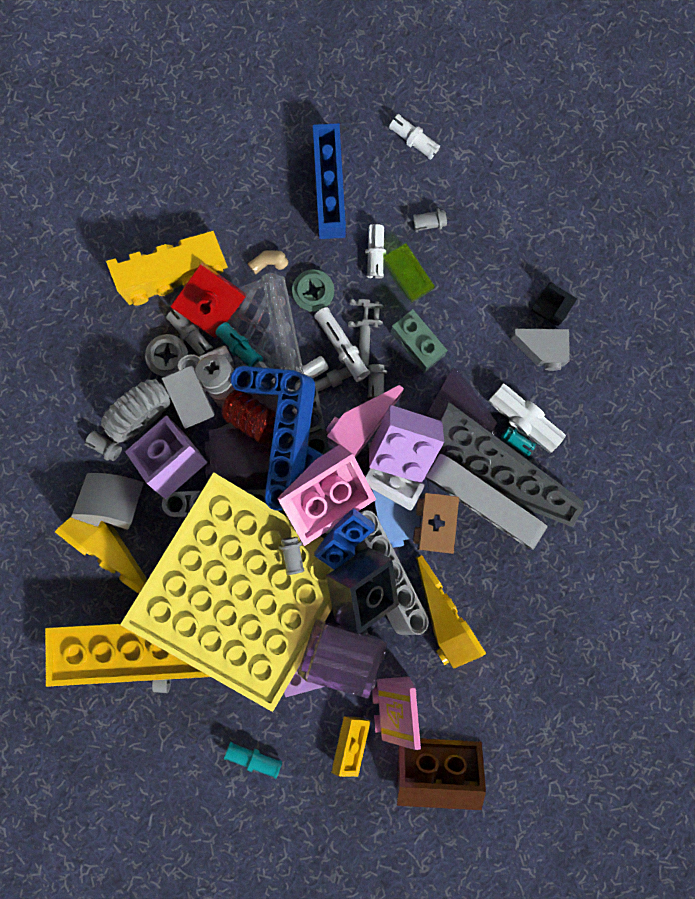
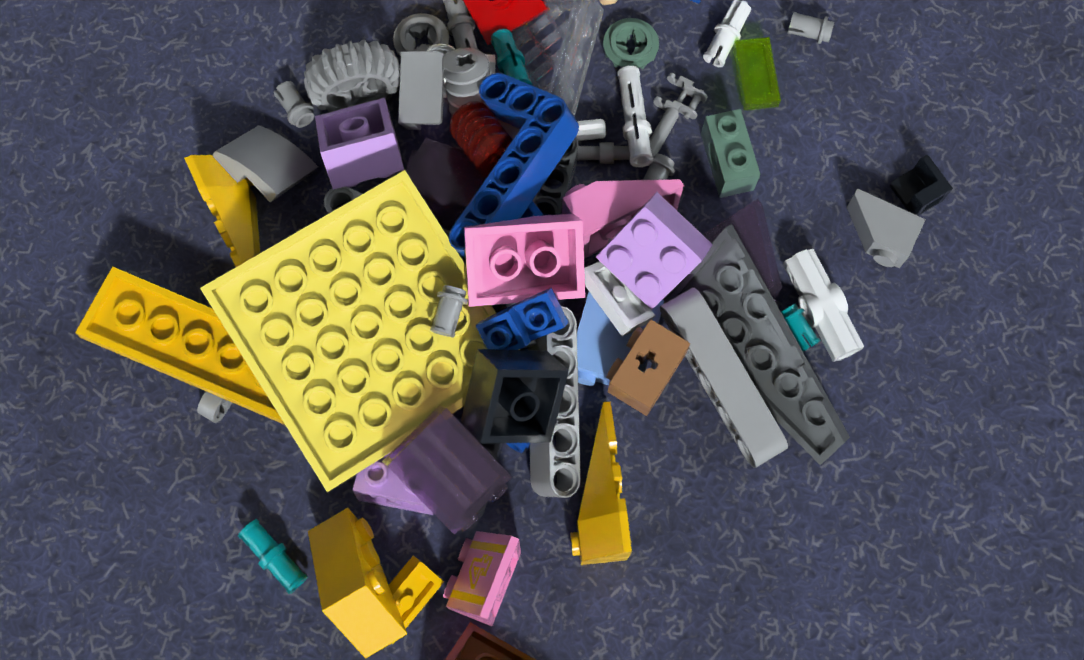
camera: 30 degrees right, 10 degrees down
(316, 756) = (354, 584): none -> yellow wedge

